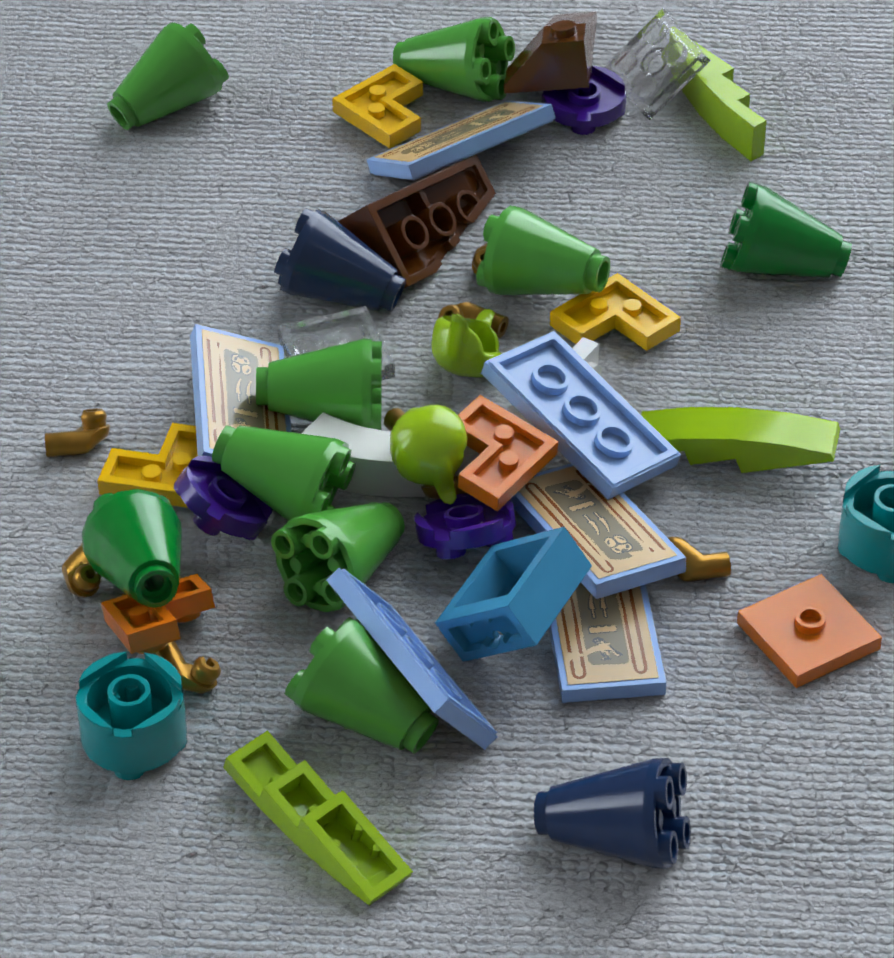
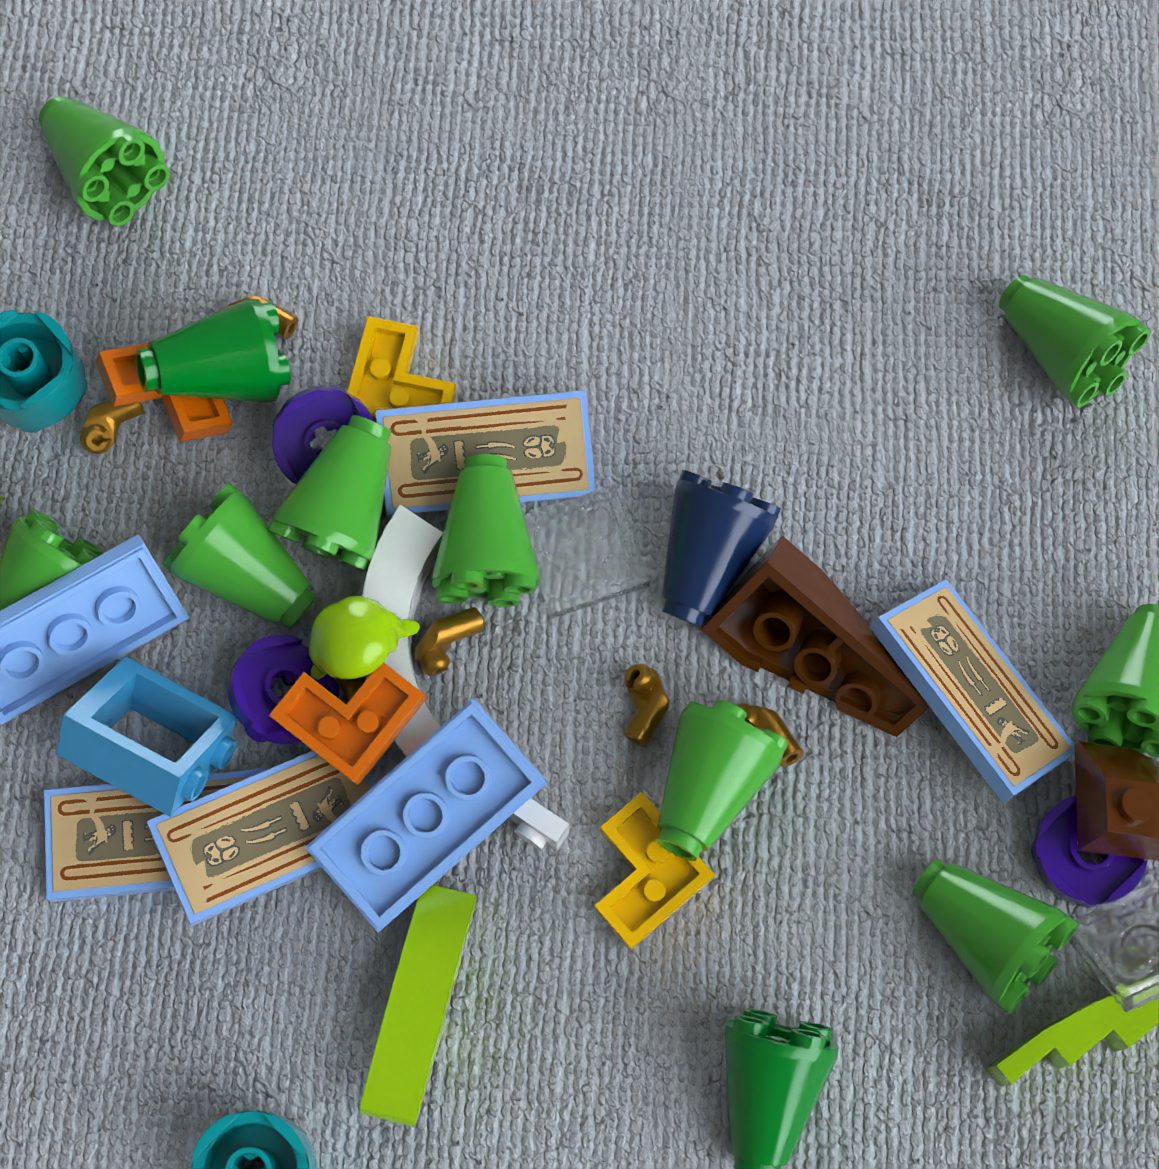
camera: 90 degrees right, 30 degrees up
(81, 440) = (450, 300): pearl gold arm -> none
(379, 104) = (1056, 582): yellow plate -> none
(464, 343) = (580, 695): lime hair -> none
(653, 128) = (994, 929): none -> bright green cone
(702, 566) = (229, 935): pearl gold arm -> none
(809, 630) = (123, 1064): orange plate -> none

